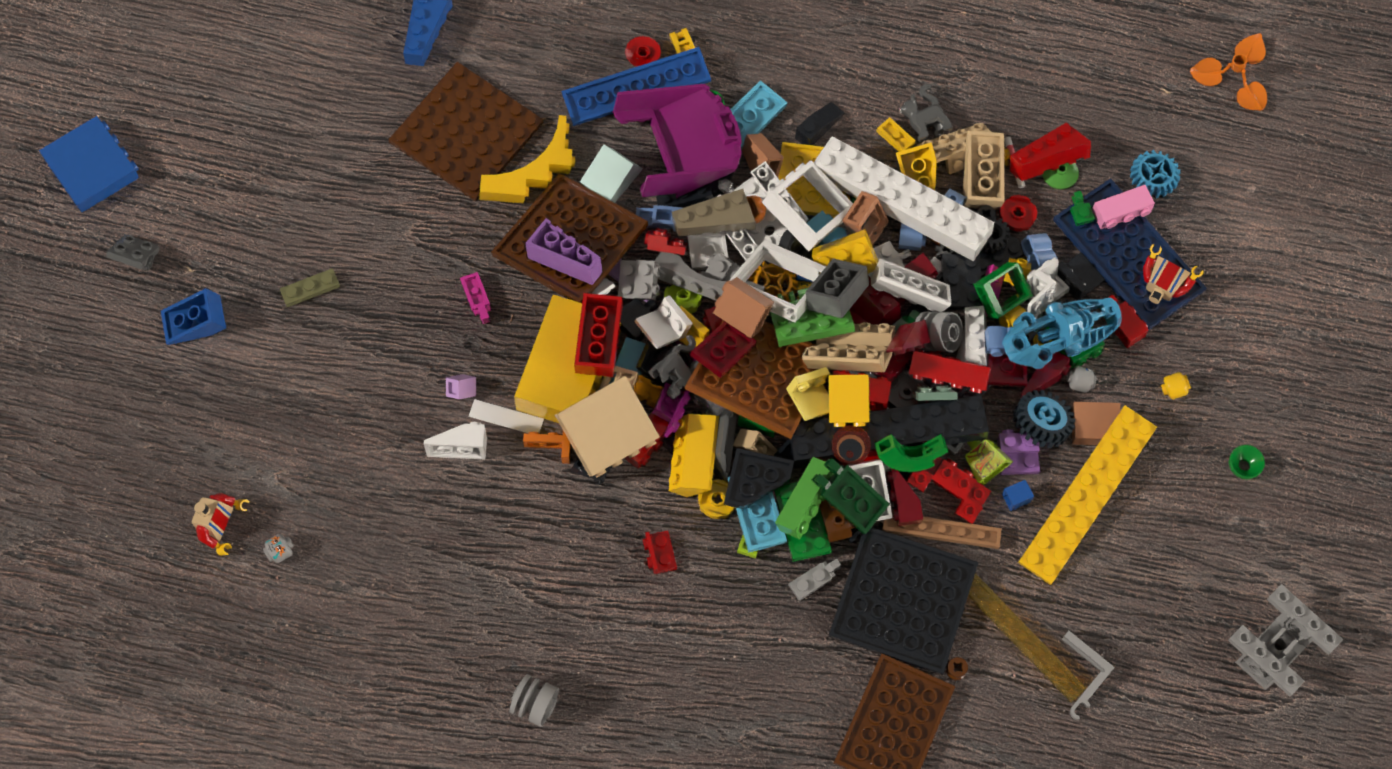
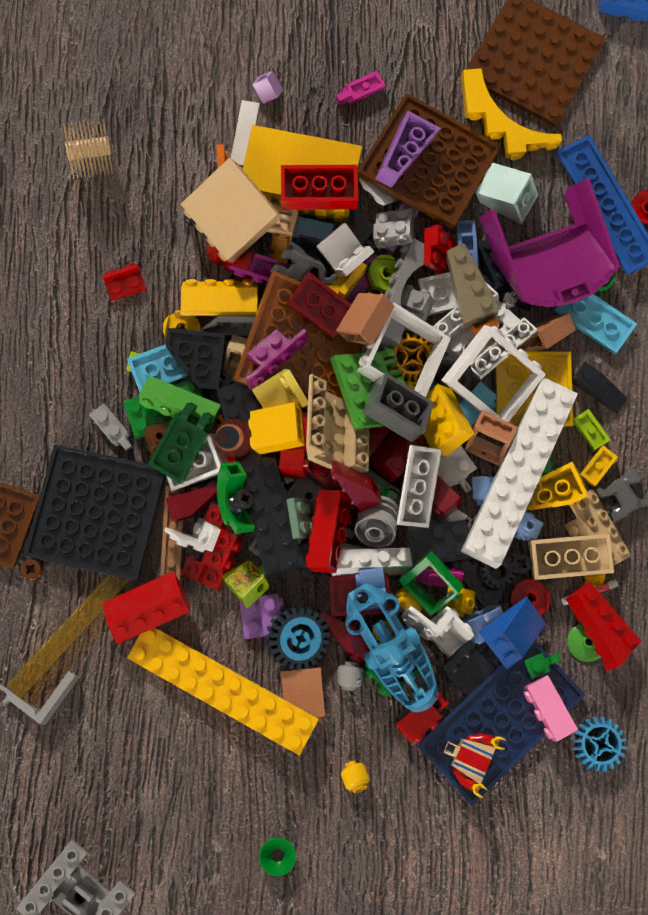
camera: 80 degrees right, 10 degrees up
(461, 442) = (210, 97): white slope -> none
(513, 567) = (87, 148): none -> tan piece
(769, 397) = (272, 353): none -> magenta bracket
(861, 135) = (591, 430): none -> lime plate
(916, 443) = (241, 501): none -> black wheel
(939, 497) = (203, 536): none -> white bracket
(1006, 555) = (146, 607): none -> red slope
(1017, 495) = (215, 617): blue panel -> none
(1053, 228) = (513, 632): none -> blue slope

